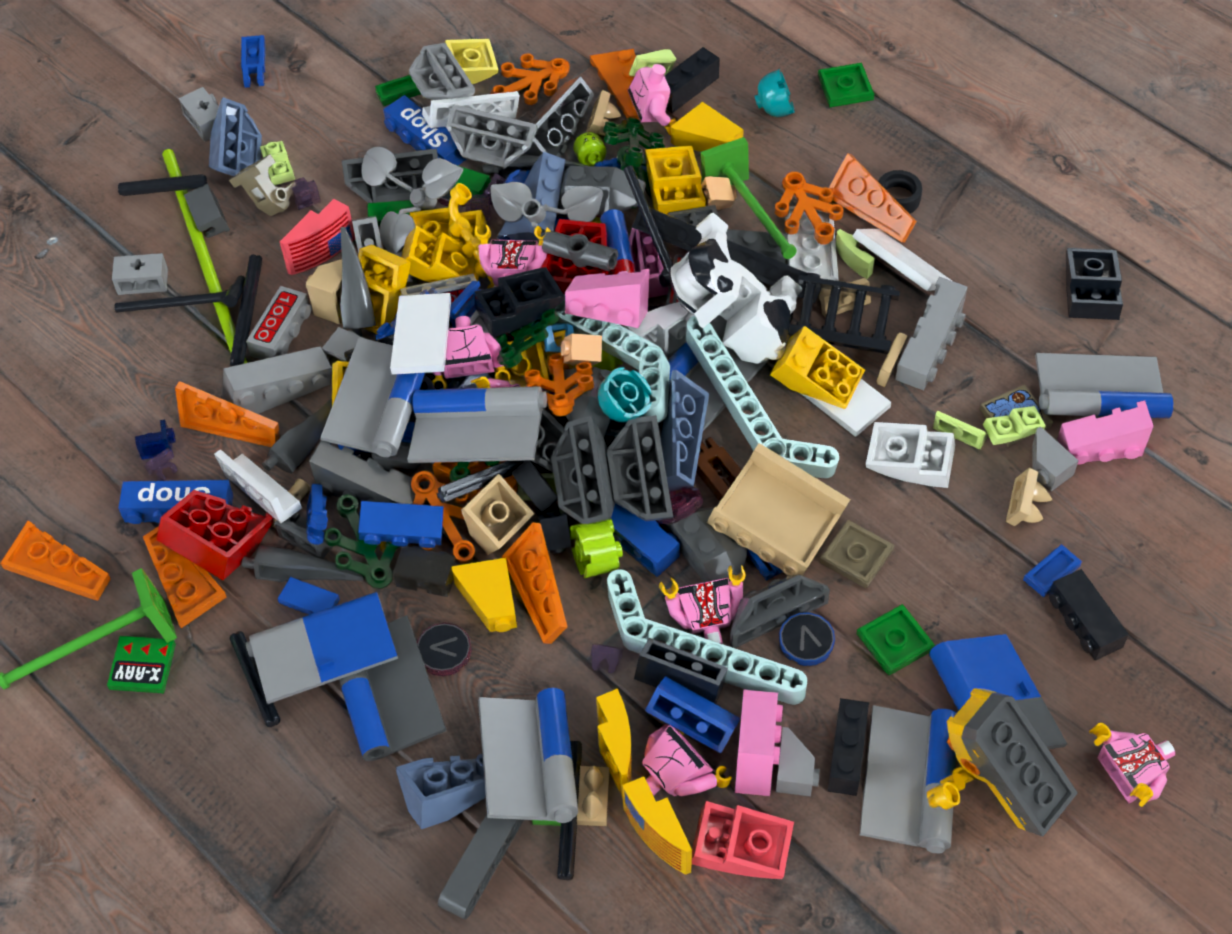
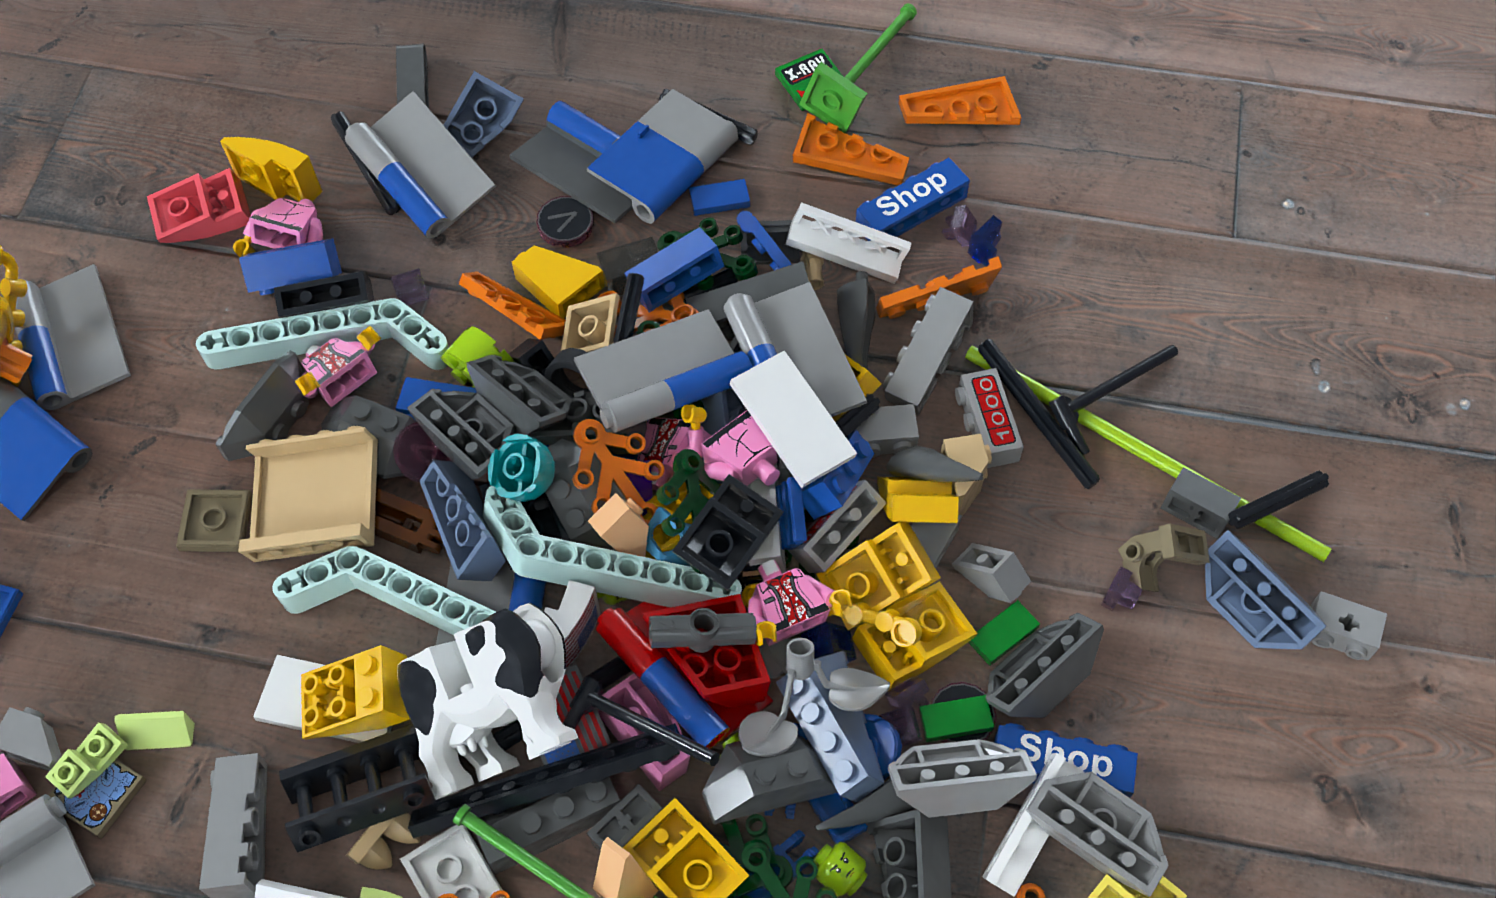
camera: 145 degrees right, 5 degrees up
(140, 274) = (1186, 390): light grey brick -> none
(212, 532) = (845, 176): red wedge -> none
(253, 59) = (1380, 750): blue hinge -> none
(280, 564) = (769, 204): dark grey piece -> none
(281, 170) = (1196, 621): yellowish green slope -> none
(316, 237) = (1042, 527): coral slope -> none
(395, 89) = (1171, 817): green tile -> none
(438, 178) = (976, 656): light grey plant -> none
(593, 796) = (351, 181): tan tile -> none
(610, 298) = (624, 581): bright pink wedge -> none
(614, 737) = (349, 212): yellow slope -> none
(757, 742) = (221, 282): bright pink wedge -> none
(795, 767) = (178, 285): light grey slope -> none
(806, 639) = (218, 402): black tile -> none
(848, 747) = (135, 323): black brick -> none
(891, 359) = (274, 760): tan tile -> none
(895, 639) = (135, 455): green tile -> none
(911, 453) = (200, 661): white slope -> none
(1024, 492) = (48, 676): tan tile -> none

